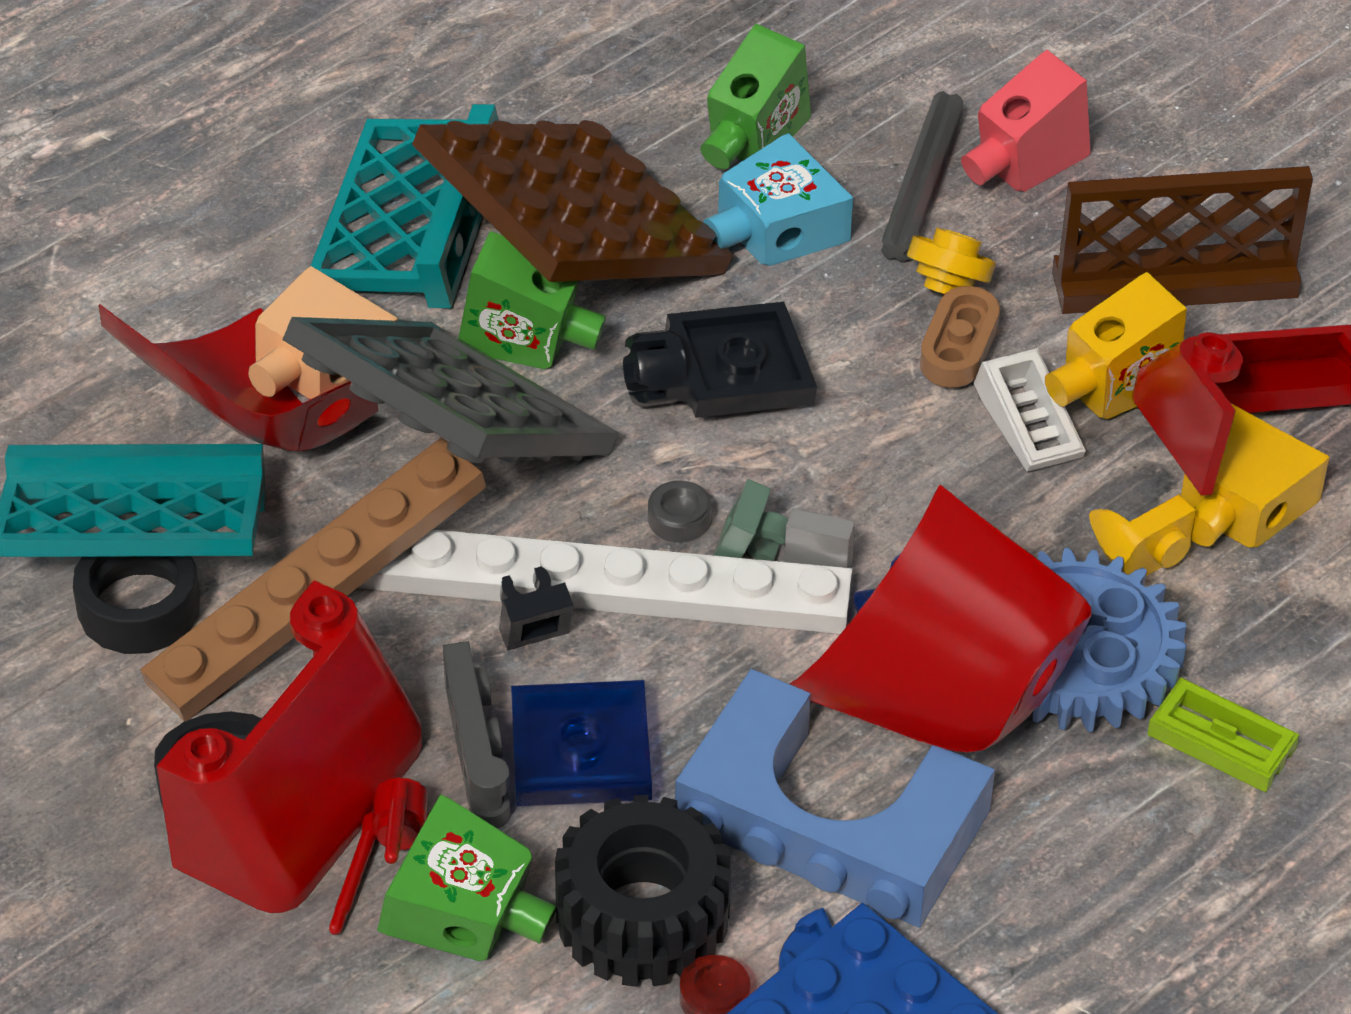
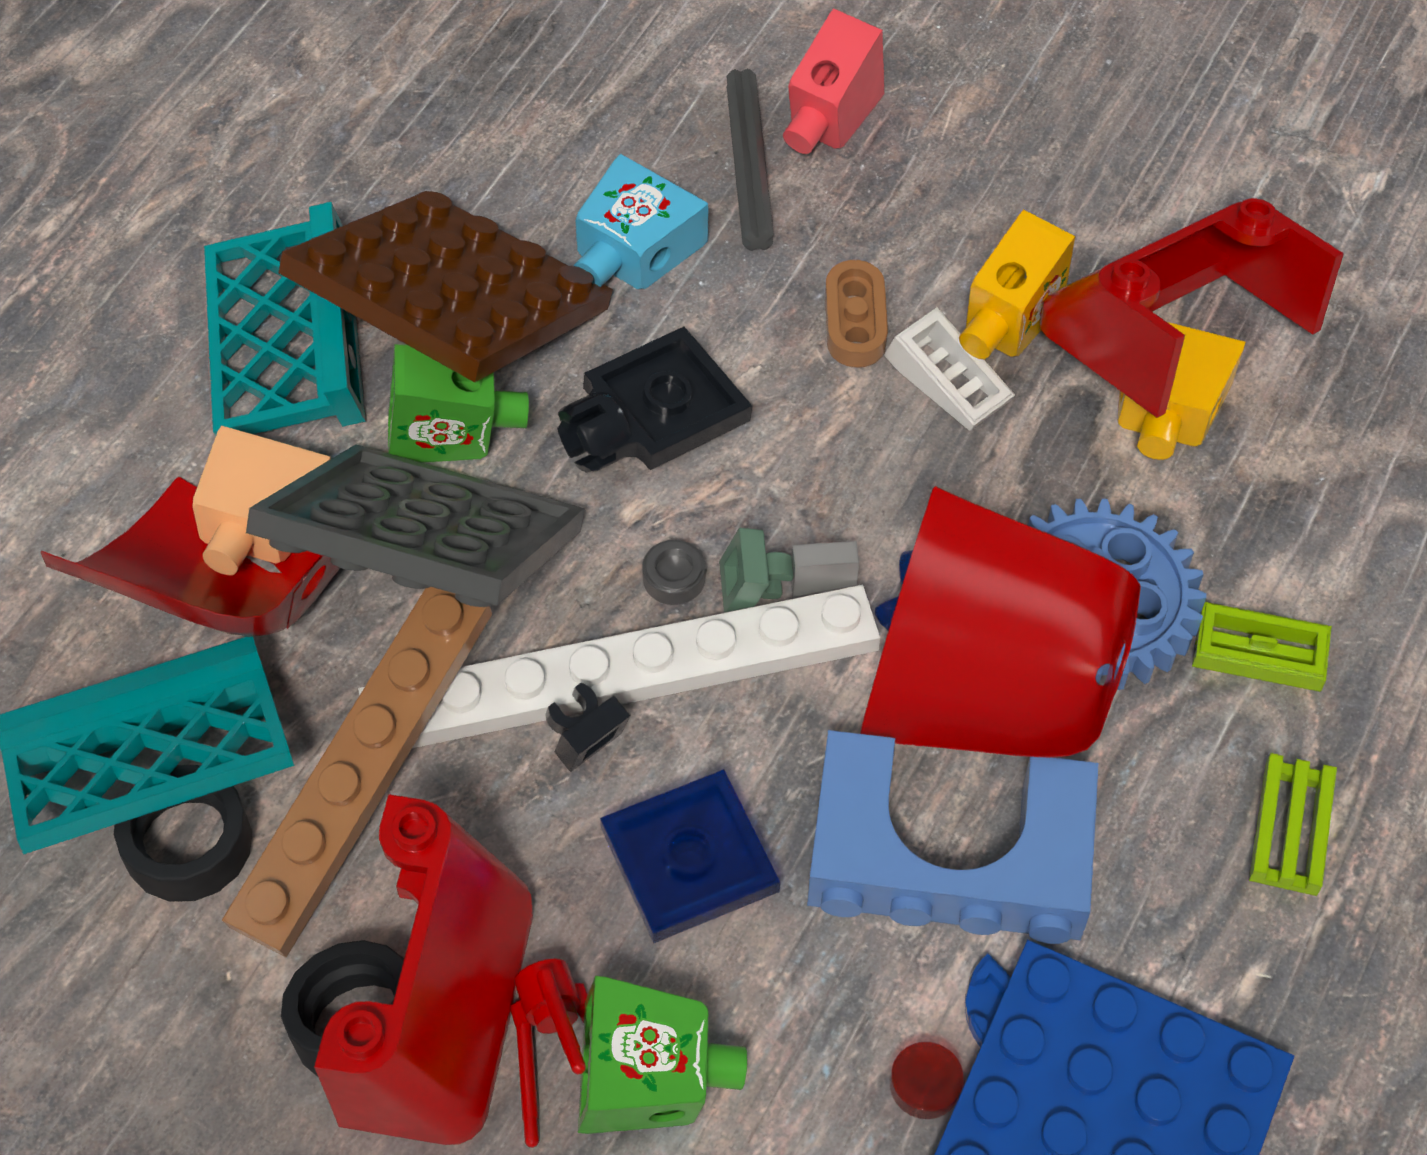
camera: 20 degrees left, 10 degrees up
(476, 738) = (588, 885): dark grey plate -> none
(642, 845) = (832, 950): black tyre -> none
(757, 97) = (571, 144): bright green torso -> none
(950, 260) = (817, 240): yellow plate -> none
(1149, 541) = (1122, 470): yellow plate -> none
(1193, 274) = (1037, 180): reddish brown fence -> none
(1198, 853) = (1300, 776): none -> lime tile

